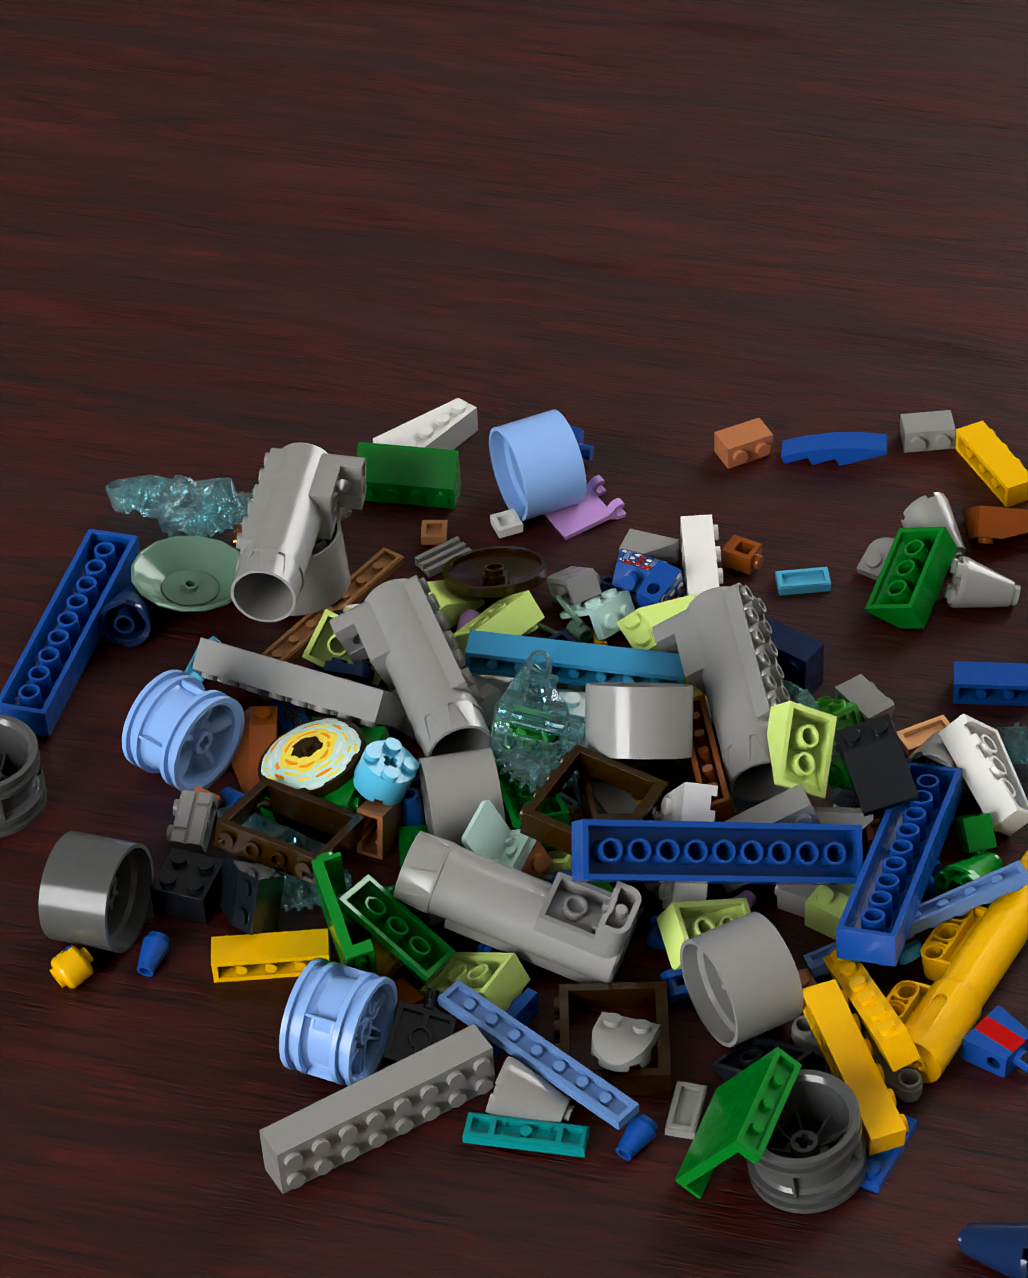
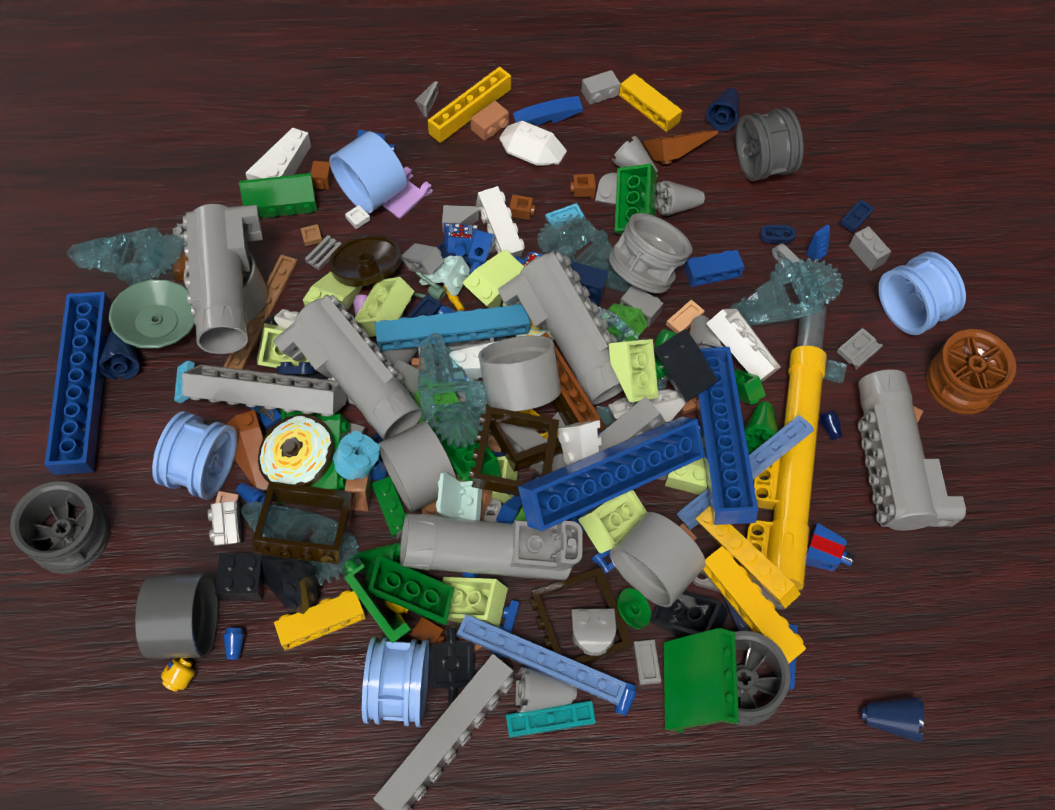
camera: 25 degrees left, 20 degrees up
(475, 464) = (321, 174): none -> dark orange brick
(667, 401) = (427, 98): none -> light grey slope
(692, 1041) = (634, 608): none -> green dish
(698, 423) = (469, 104): none -> yellow brick
(795, 484) = (532, 144): none -> white wedge
(821, 617) = (573, 234): none -> clear light blue connector
(845, 546) = (583, 185): none -> dark orange brick
(894, 633) = (650, 253): none -> light grey wheel

